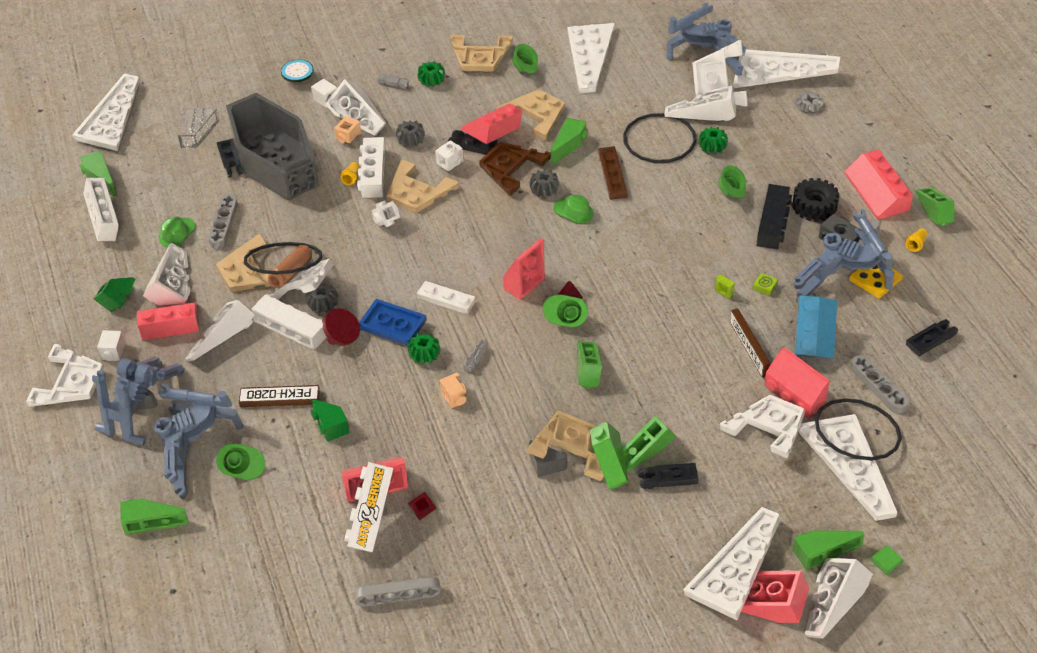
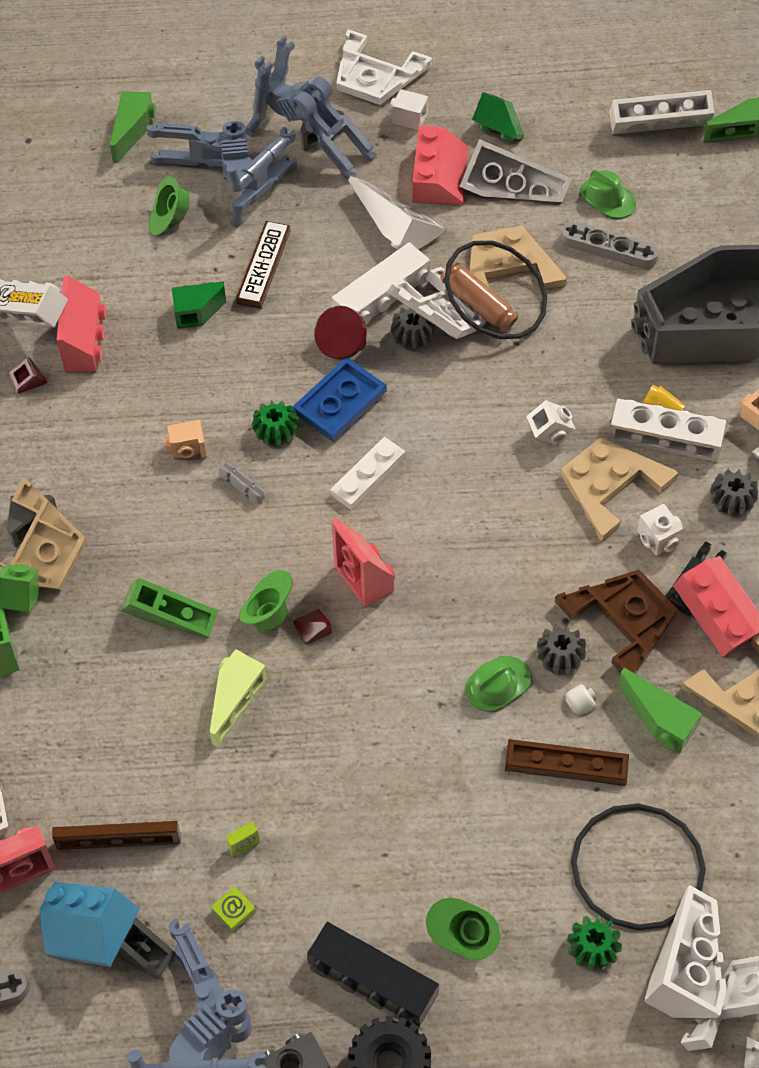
camera: 105 degrees right, 10 degrees up
(569, 175) = (581, 700): none -> white piece
(633, 315) = (237, 684): none -> yellowish green slope

